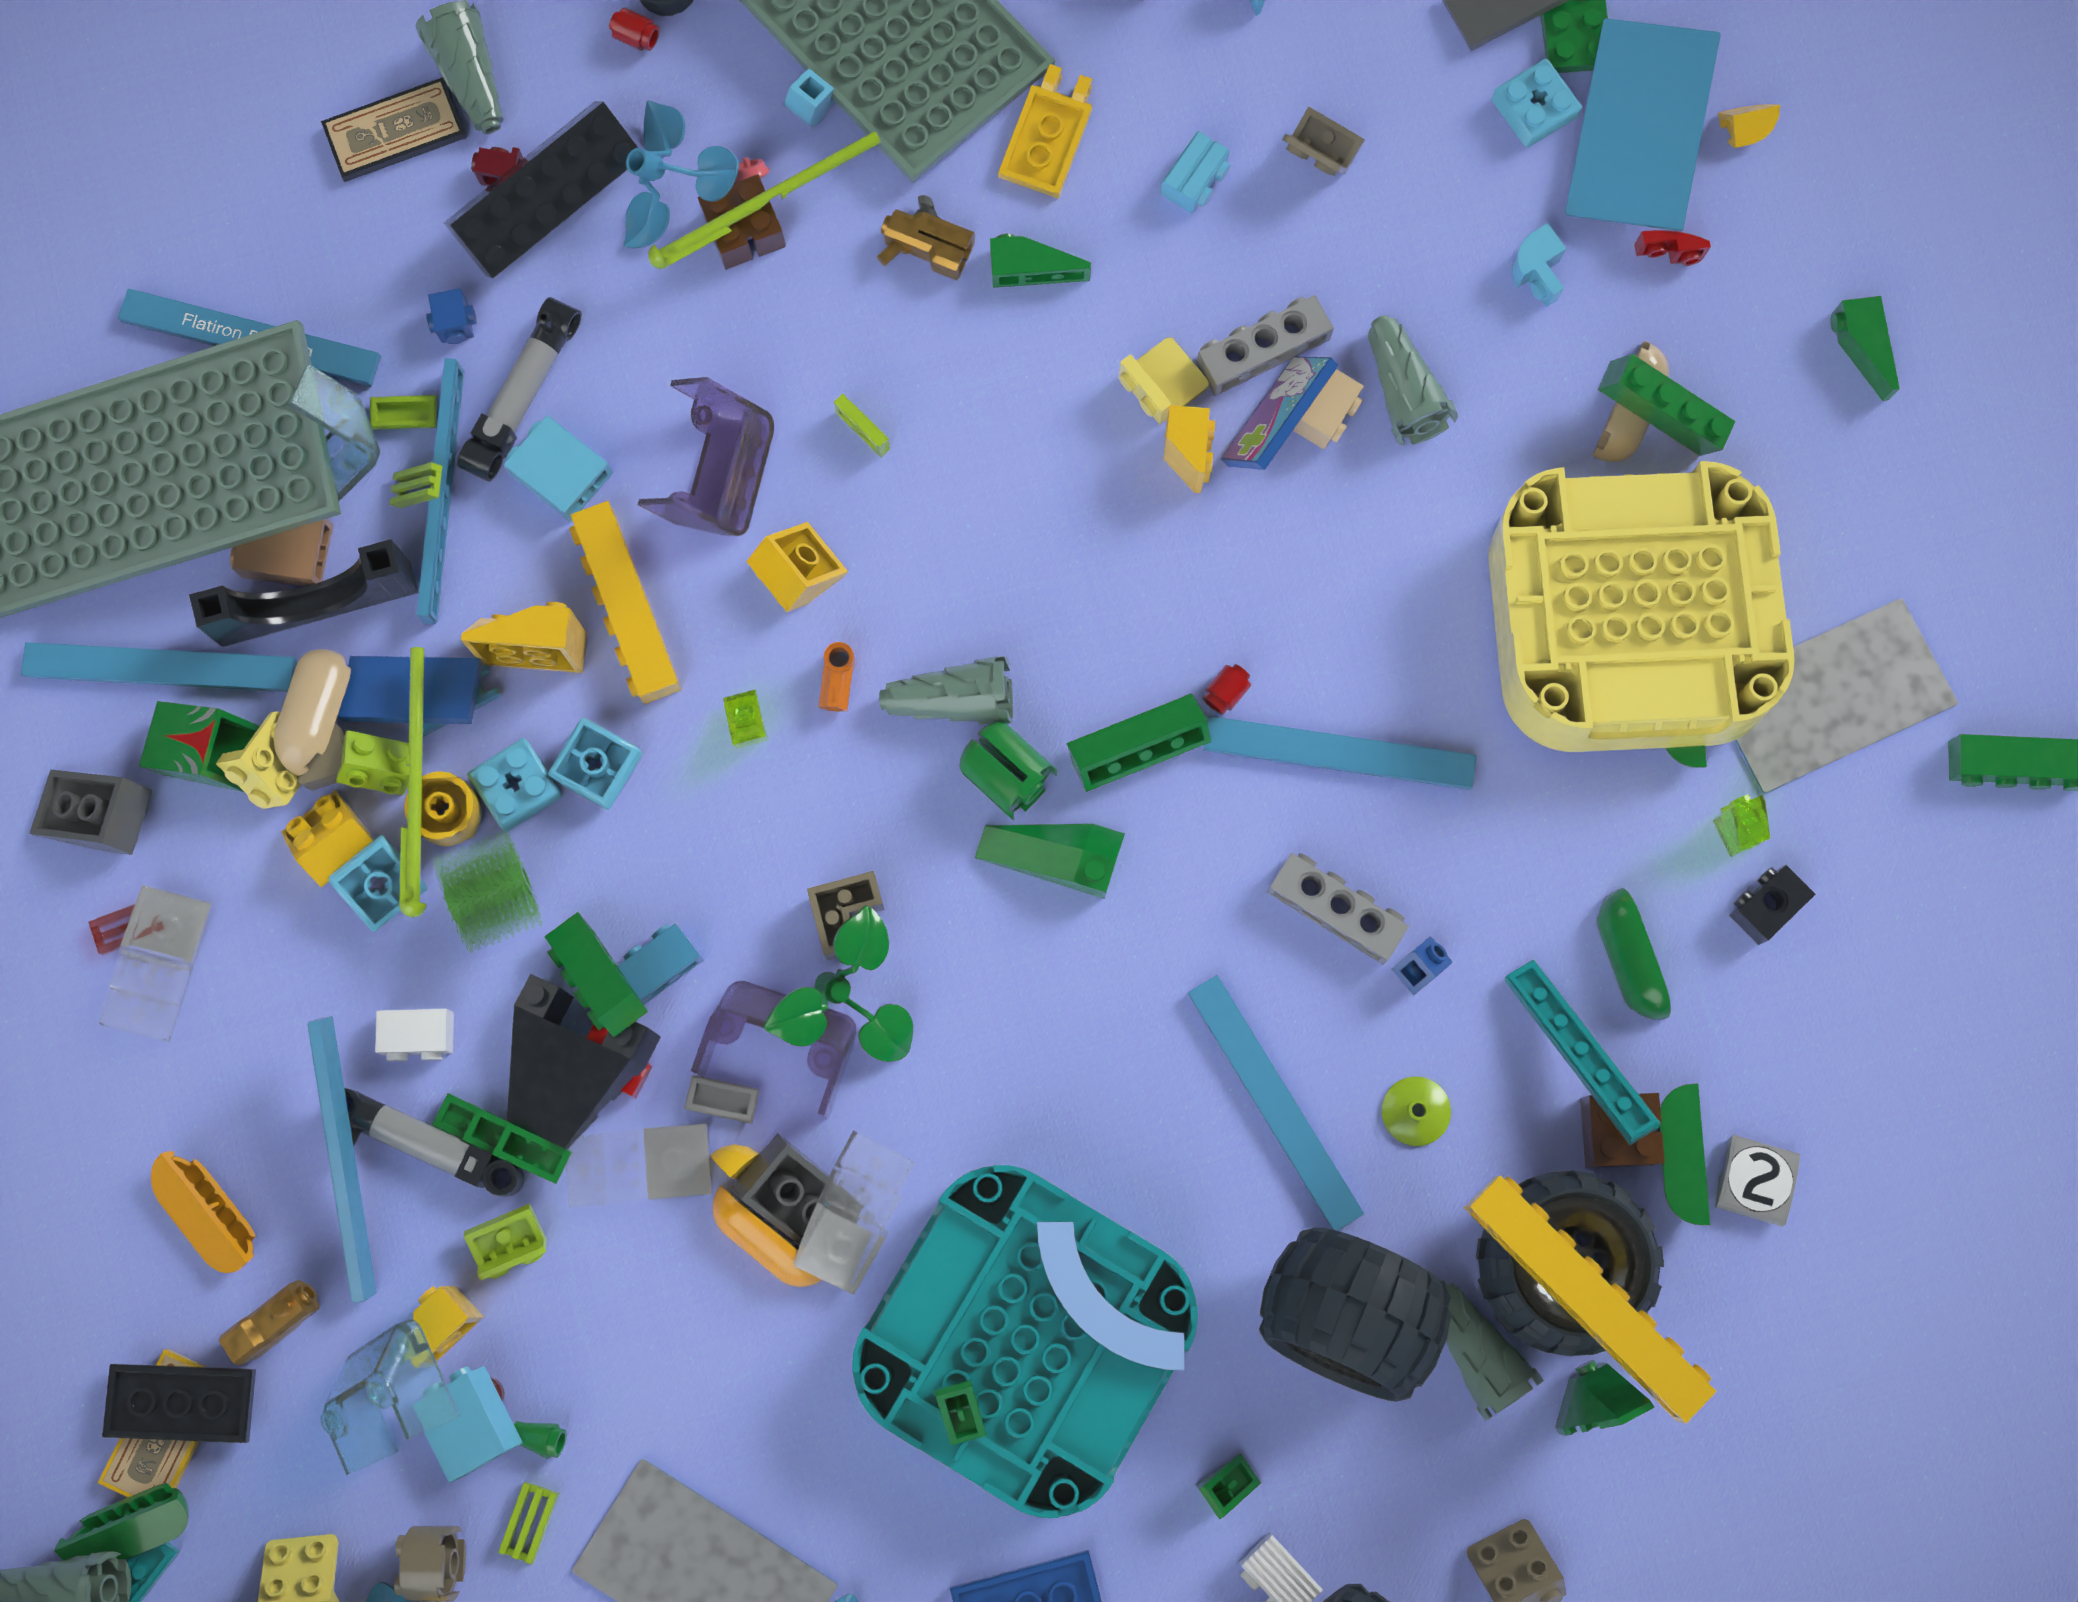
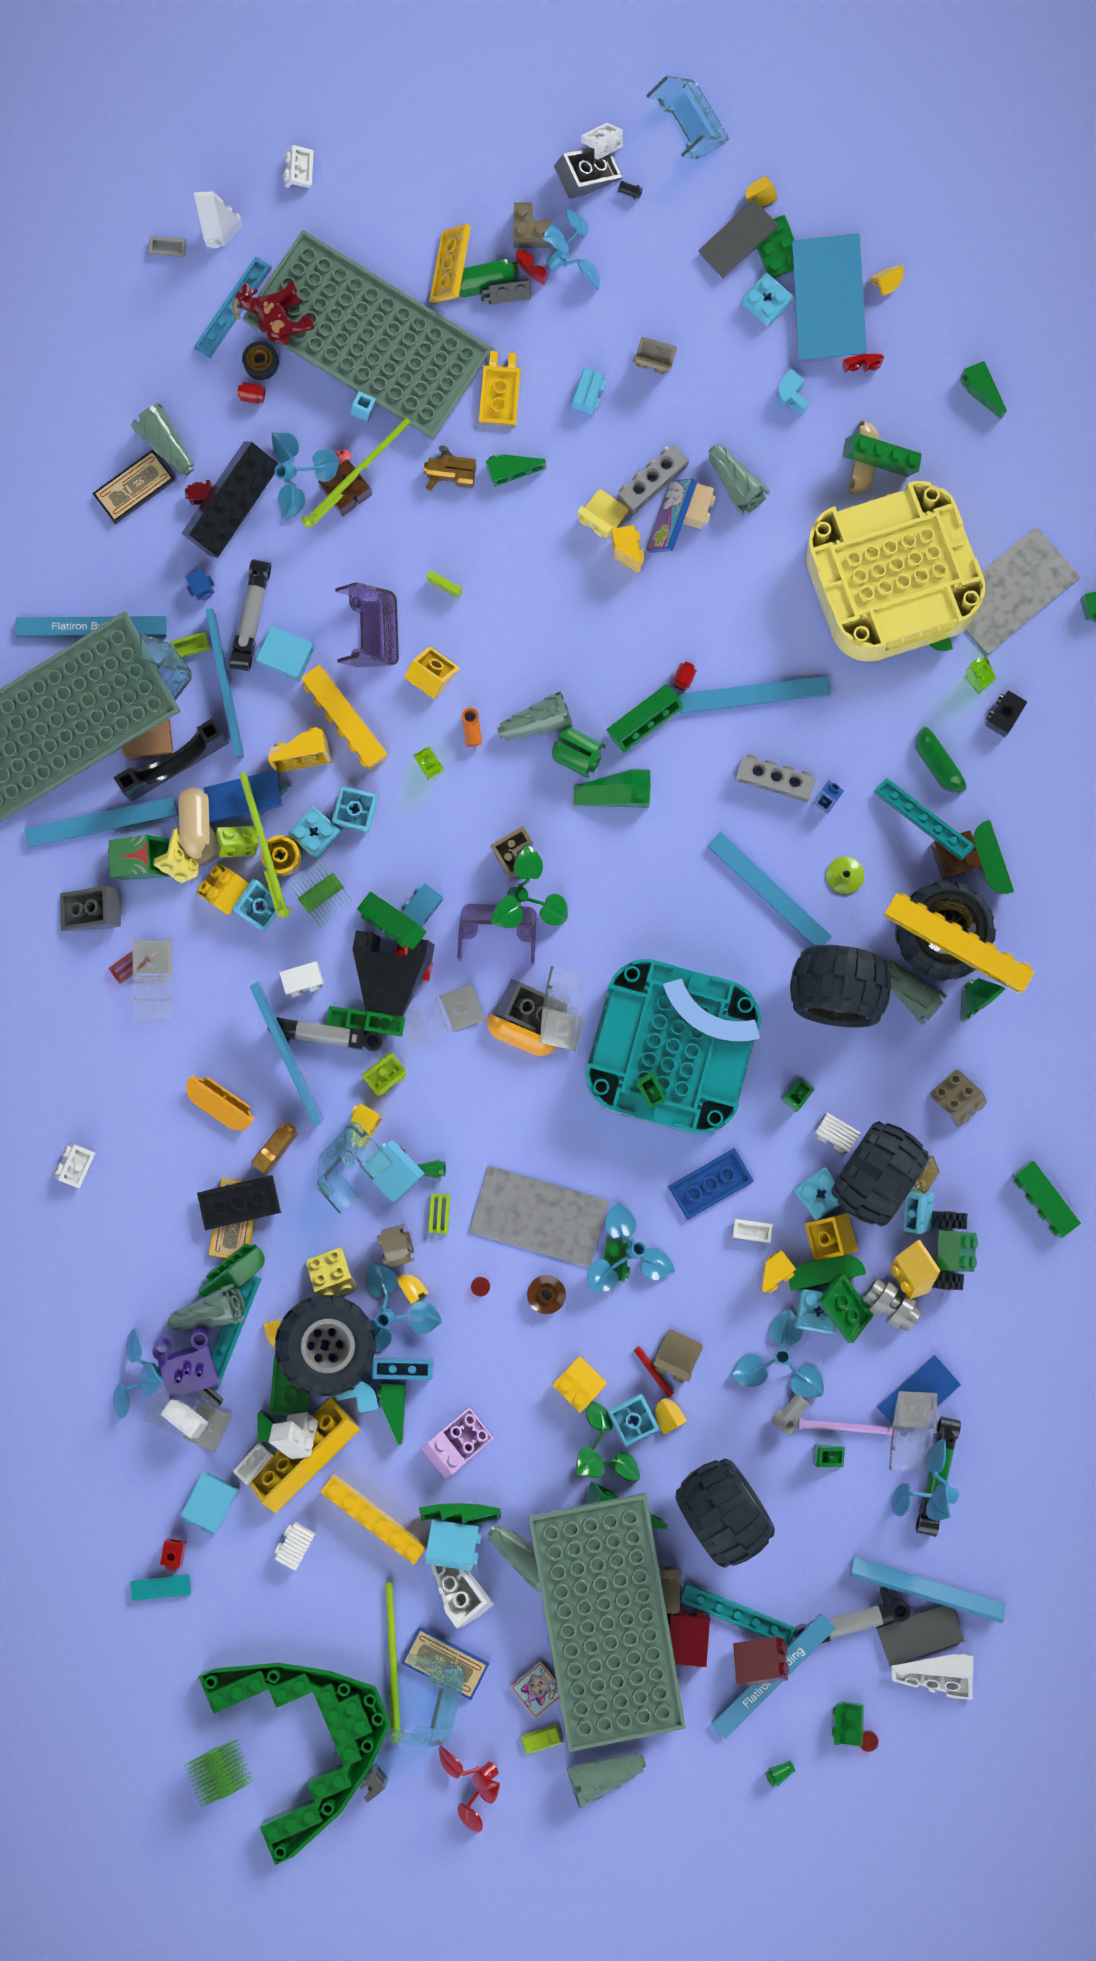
camera: 10 degrees left, 5 degrees up
(416, 478) = (203, 695): lime tile -> none
(722, 1099) = (475, 969): light grey tile -> none
(734, 1159) = (492, 998): yellow brick -> none
(1757, 1180) = (1034, 862): slope -> none

